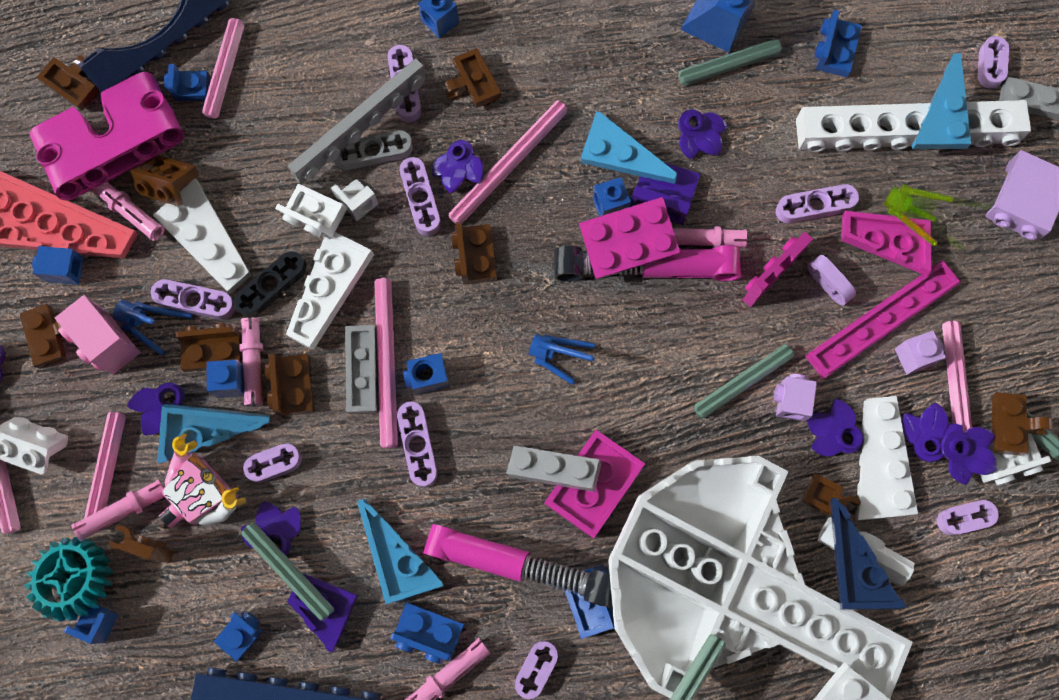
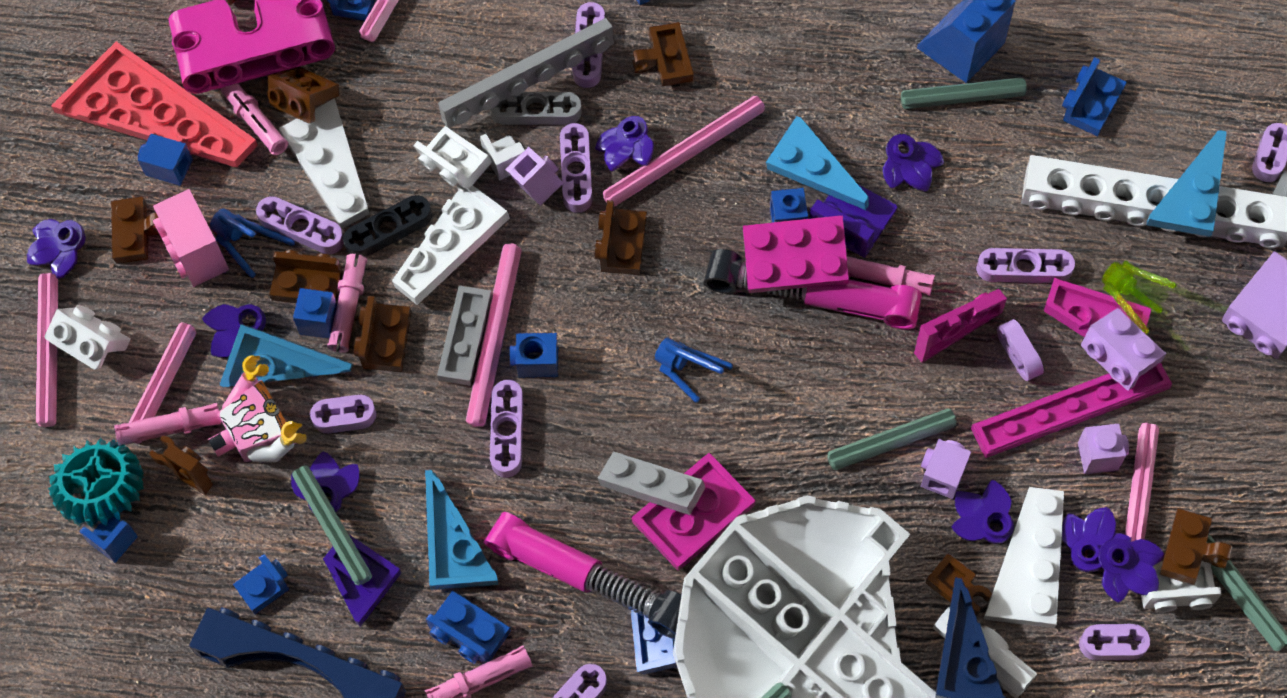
camera: 15 degrees right, 10 degrees down
(387, 212) = (535, 175): none -> lavender brick
(917, 262) = (1121, 348): none -> lavender bracket

